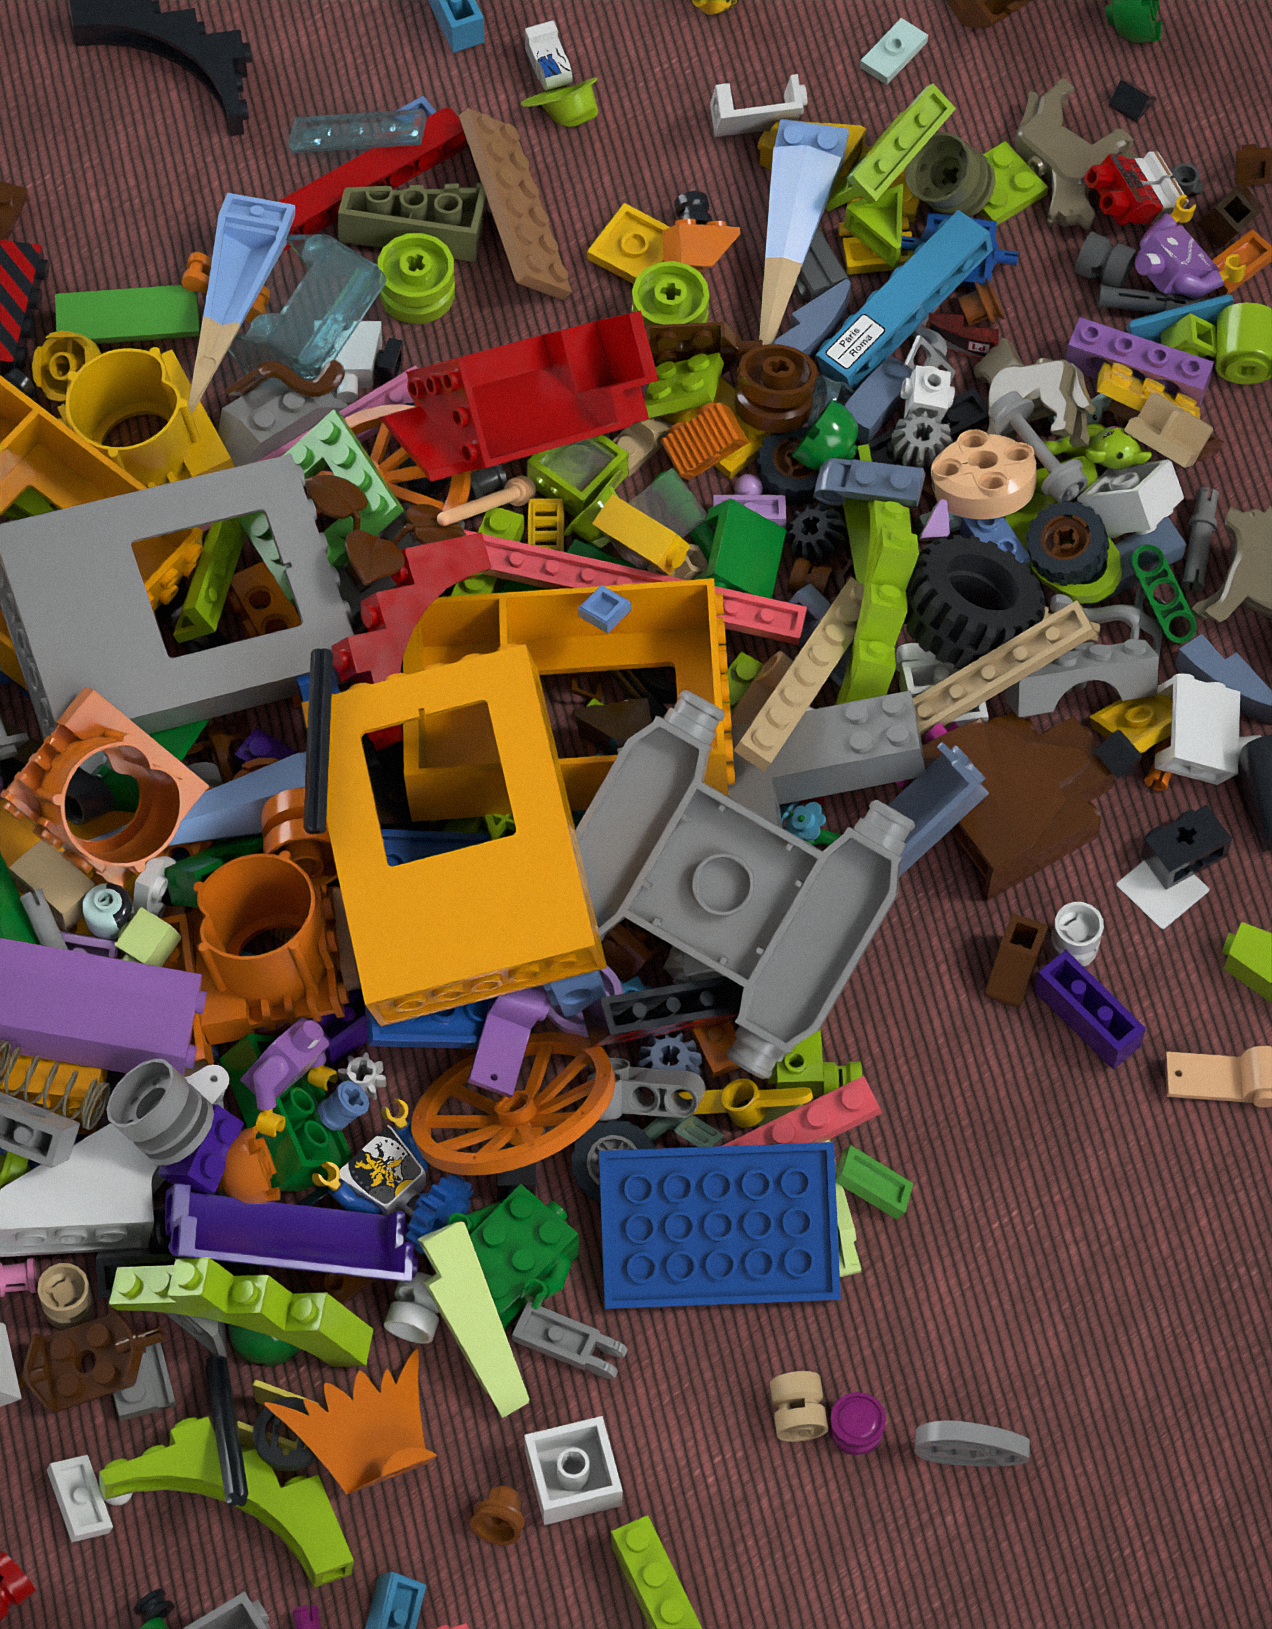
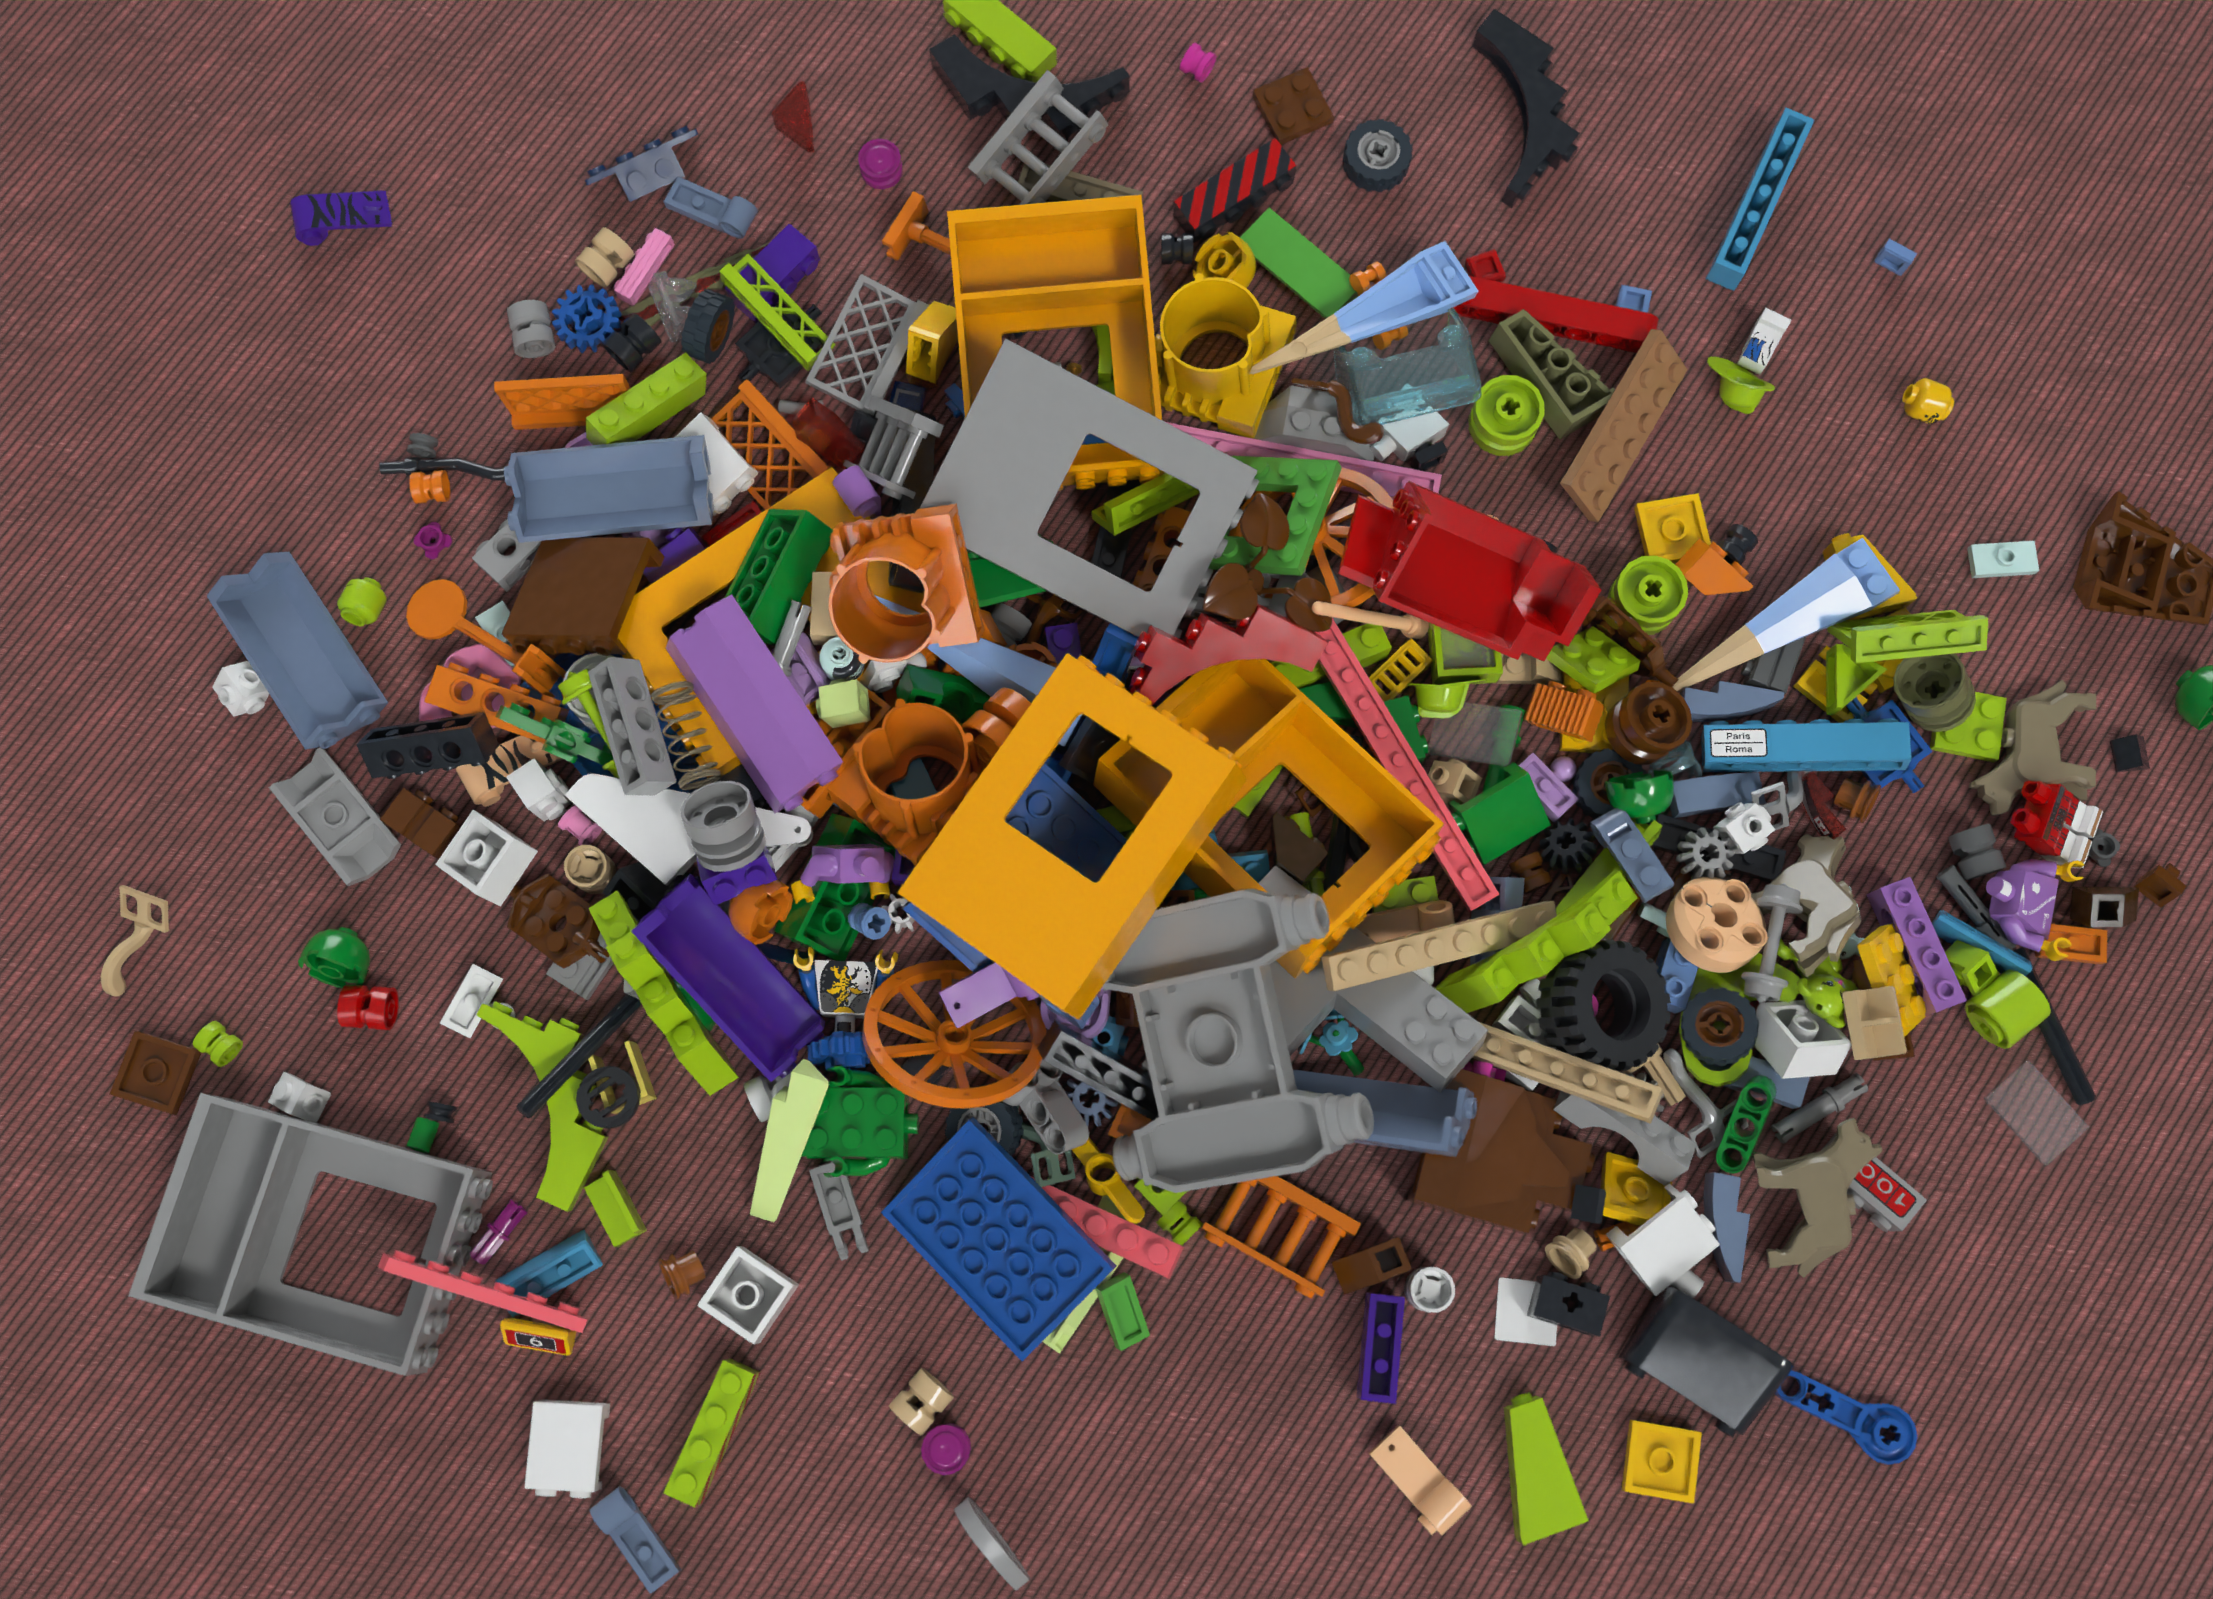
camera: 50 degrees right, 15 degrees up
(110, 191) = (1377, 155): none -> black wheel
(275, 187) = (1486, 266): none -> red tile
(318, 741) = (1046, 690): black axle -> none
(357, 130) = (1578, 277): clear light blue plate -> none
(365, 1436) = (658, 1149): orange piece -> none
(387, 1527) = (615, 1208): none -> lime panel
(604, 609) = (1349, 773): medium blue tile -> none
(641, 535) = (1444, 740): yellow slope -> none
(755, 119) = (1828, 503): white panel -> none
(924, 971) = (1308, 1210): none -> orange fence
(937, 523) = (1640, 927): lavender slope -> none
(1145, 808) = (1571, 1252): none -> tan piece

